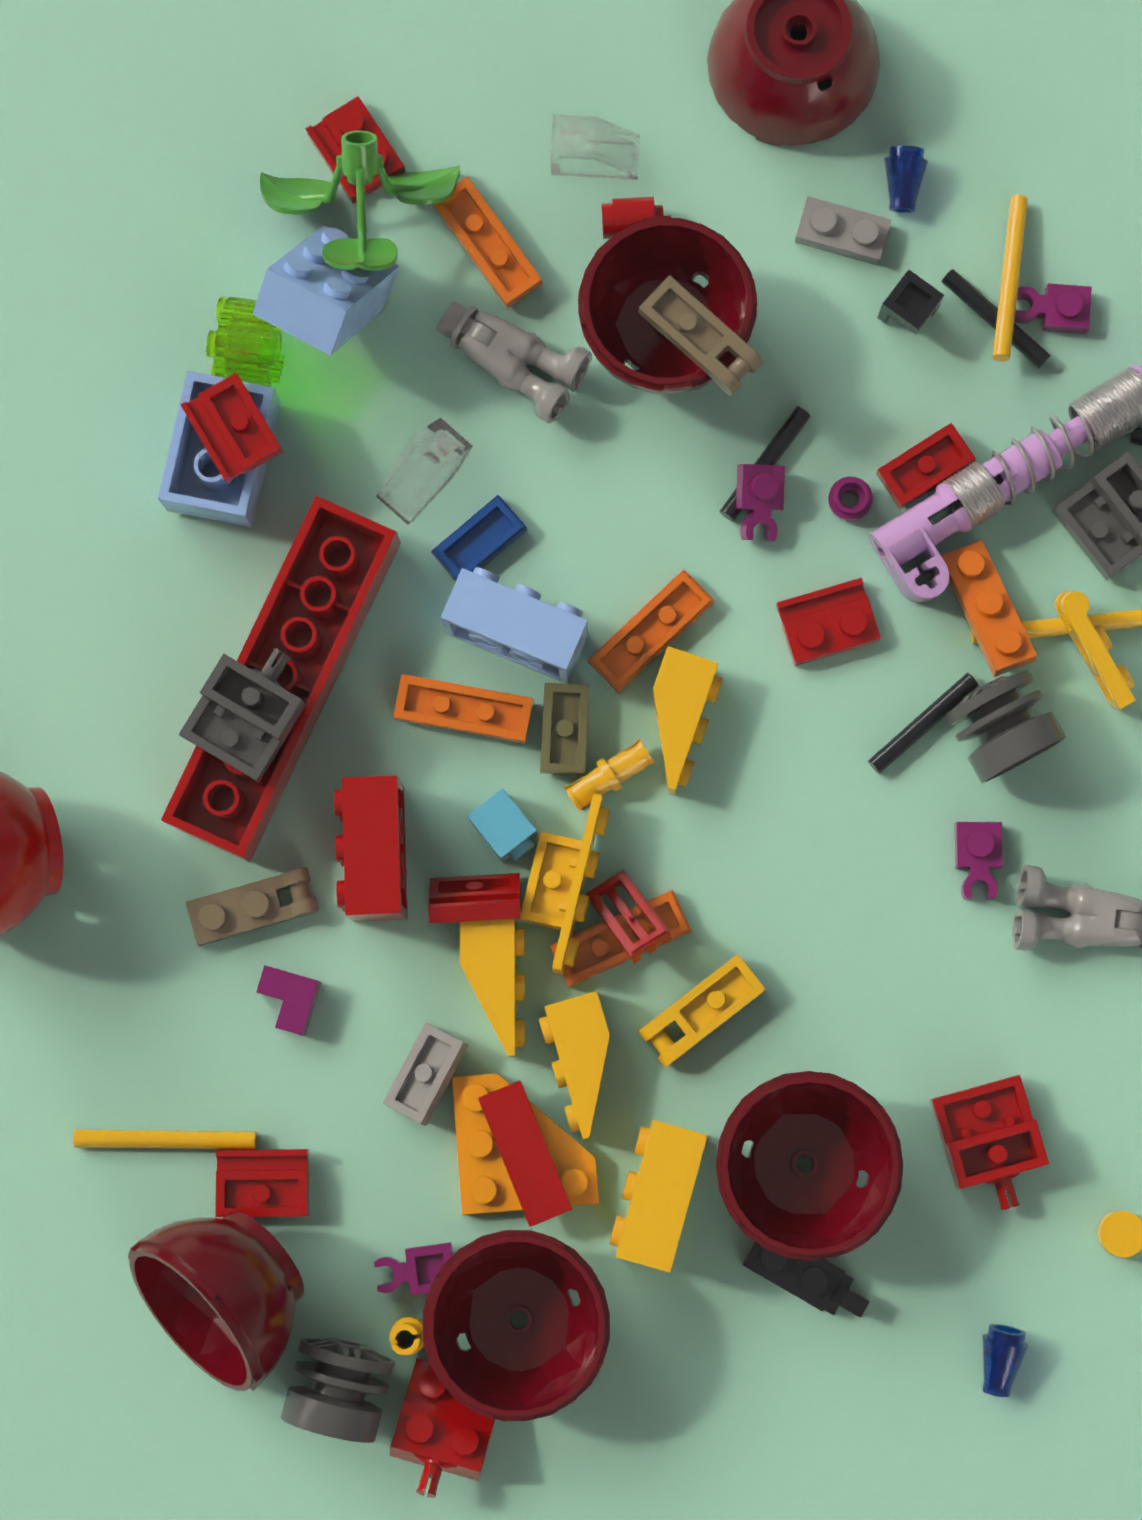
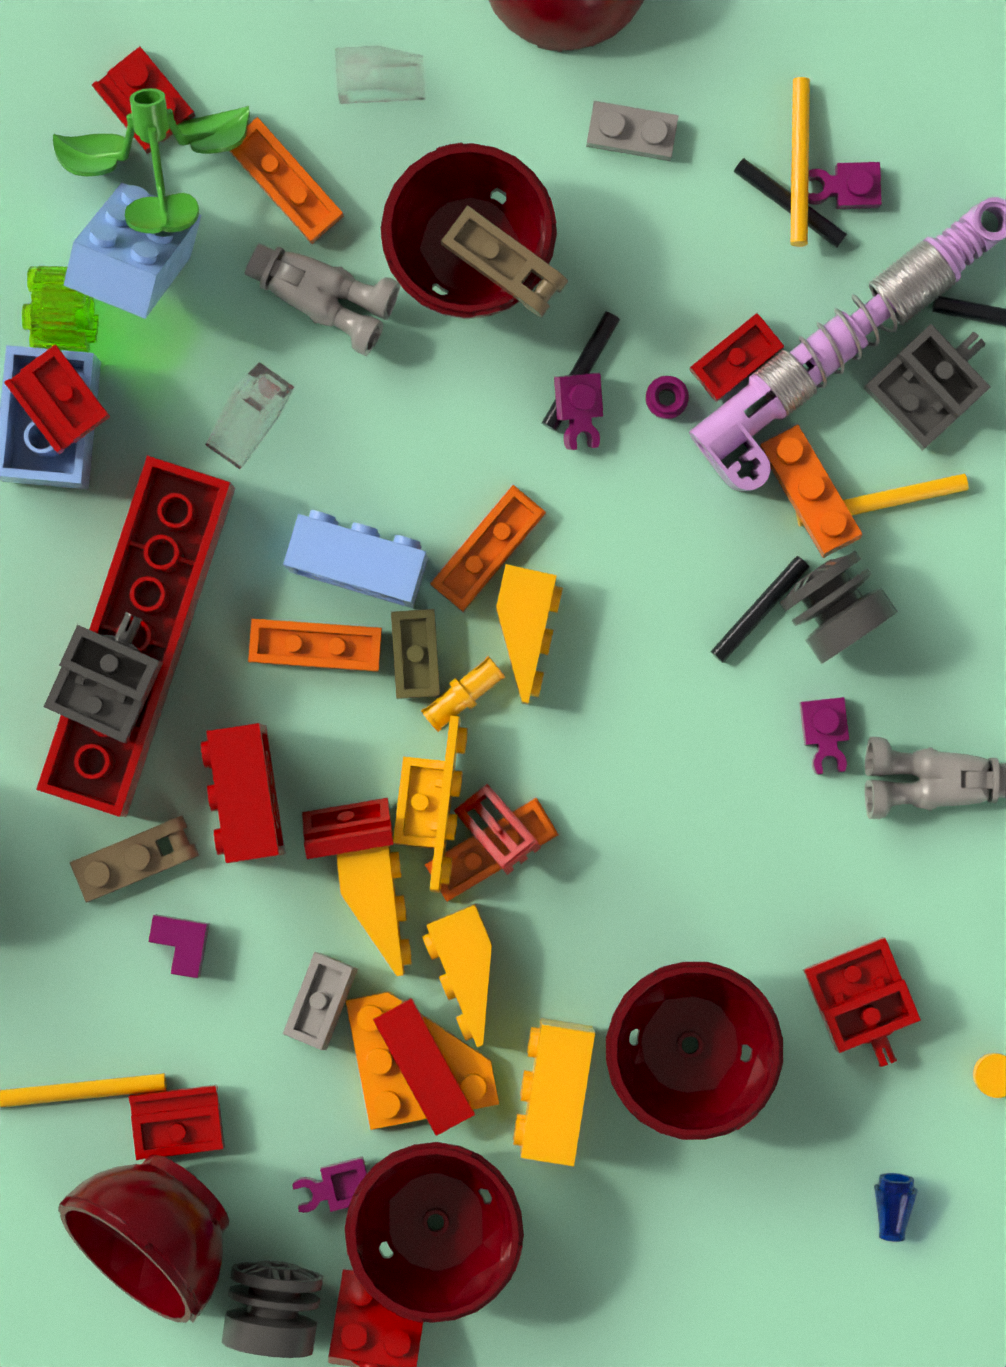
camera: 15 degrees left, 5 degrees up
(402, 1345) = (330, 1261): yellow pin -> none
(480, 538) = (311, 477): blue tile -> none
(504, 827) = (367, 756): medium azure brick -> none
(627, 211) = (421, 138): red brick -> none
(703, 1009) = (578, 909): yellow plate -> none
(810, 1280) = (716, 1157): black hinge -> none
(828, 621) = (658, 520): red plate -> none
(904, 175) = (687, 69): clear blue cone -> none
(911, 302) = (706, 198): black panel -> none
(1094, 648) = (916, 519): yellow plate -> none

